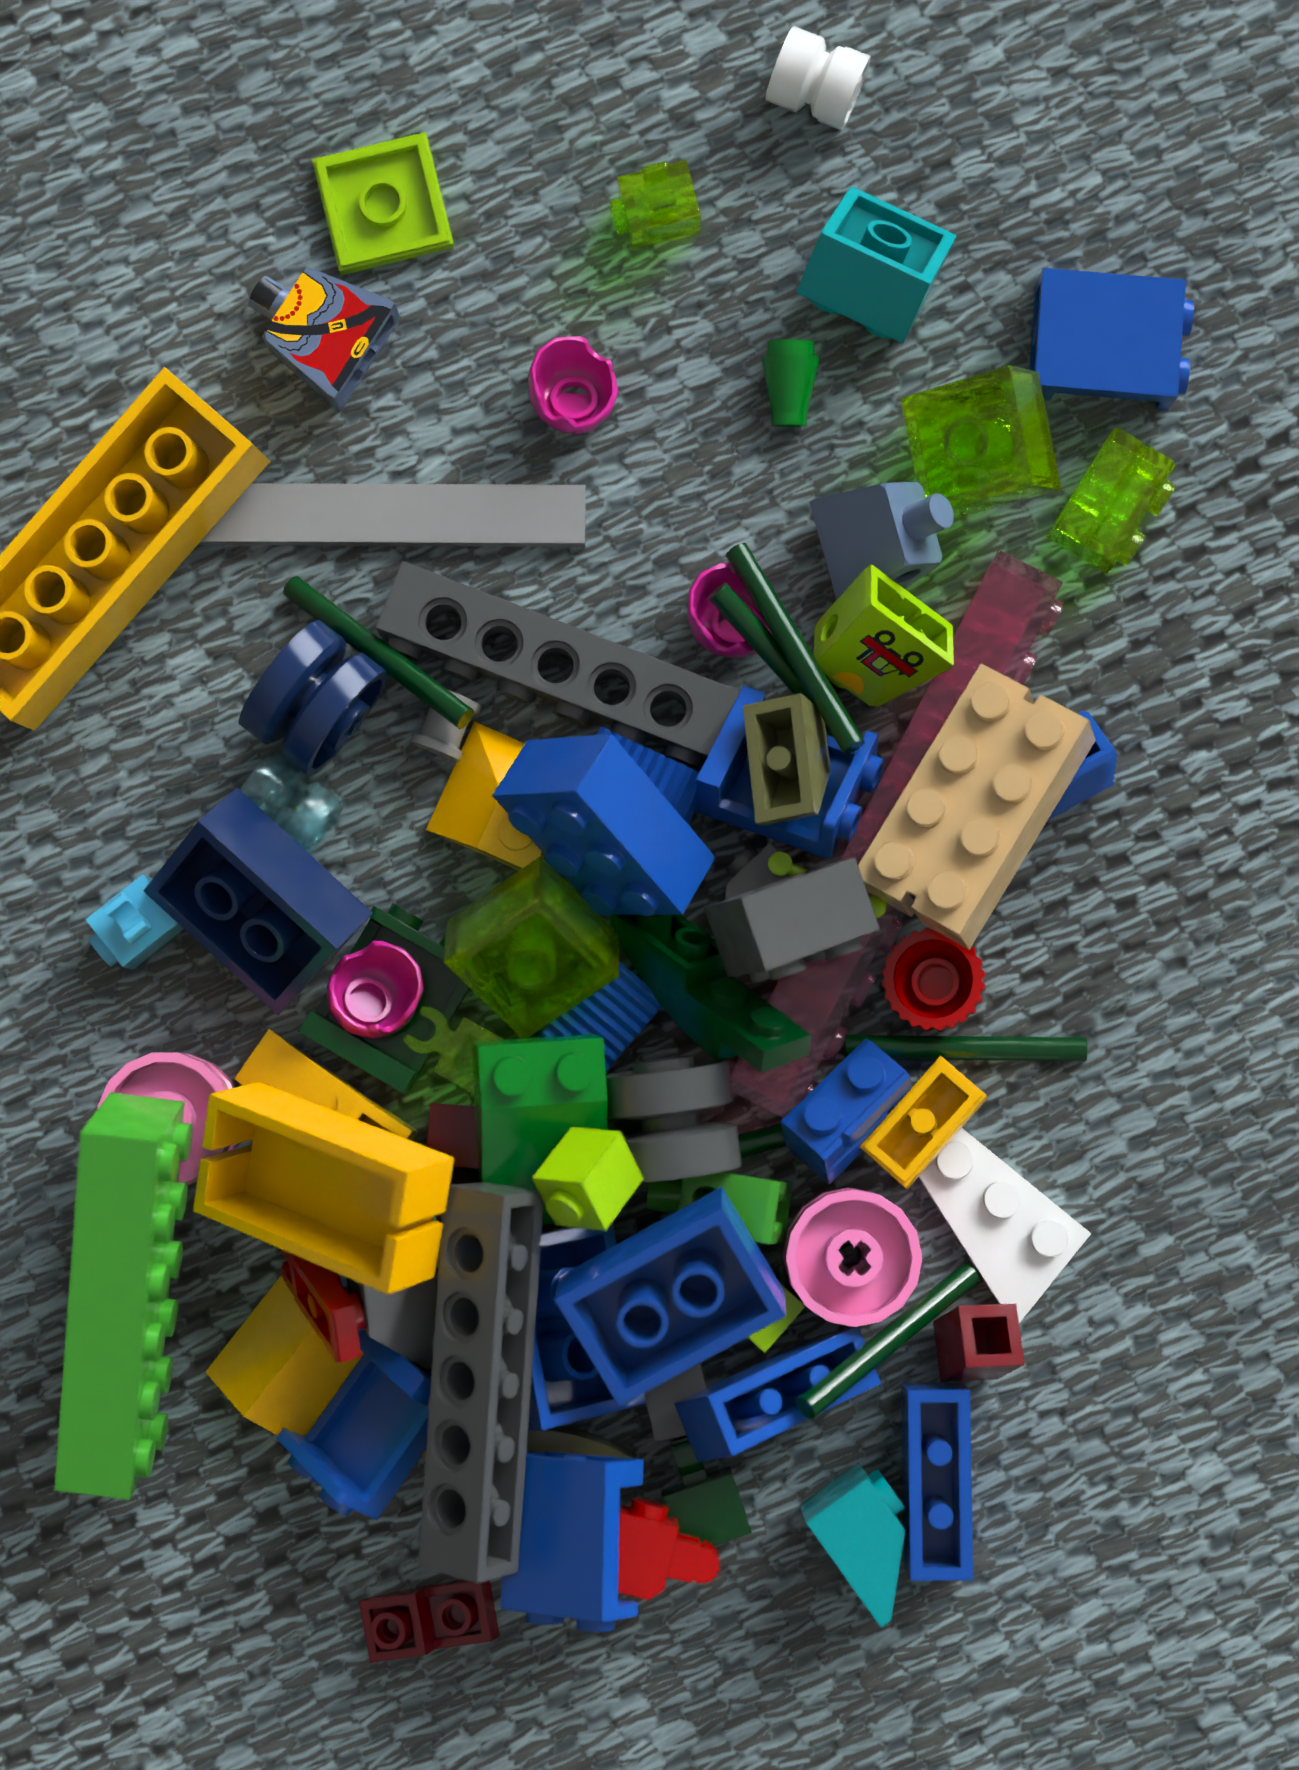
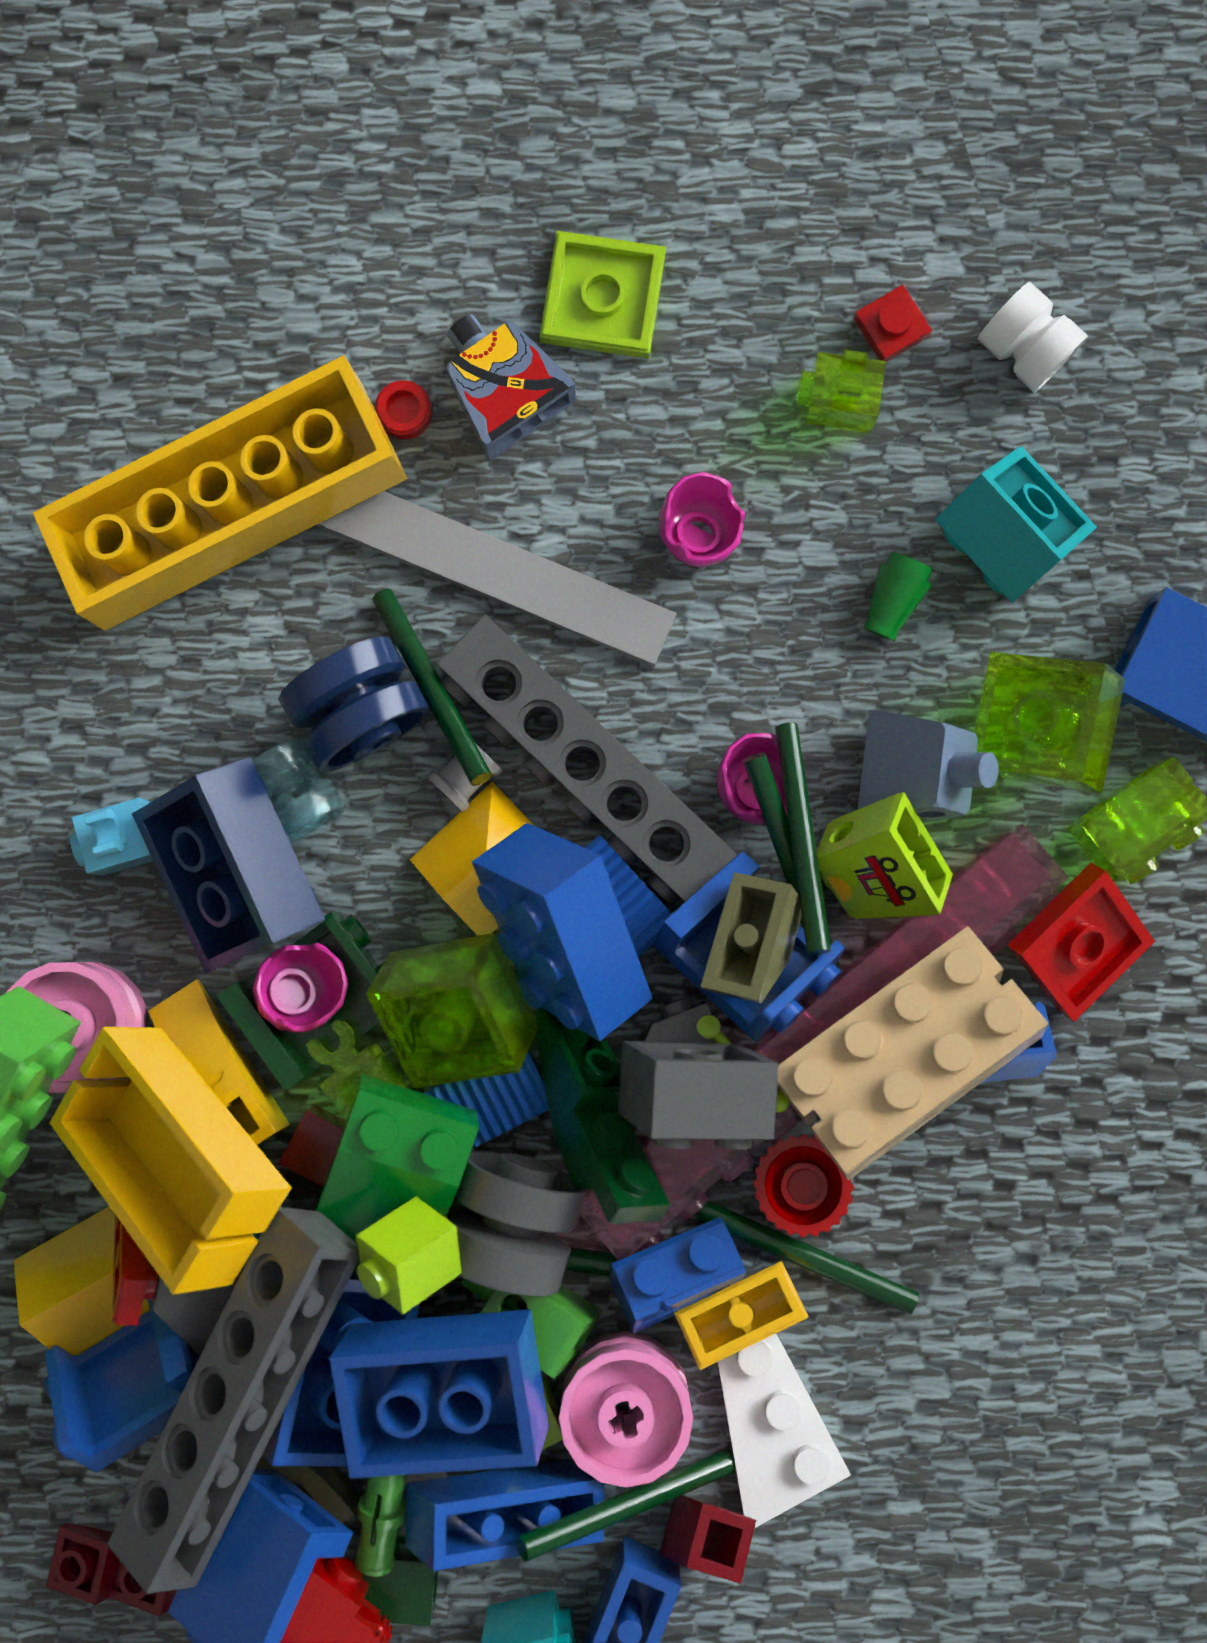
camera: 25 degrees right, 0 degrees up
(236, 395) = (403, 409): none -> red tile
(662, 1443) = (381, 1514): none -> bright green pin
(678, 118) = (892, 324): none -> red plate
(1101, 639) = (1081, 942): none -> red plate

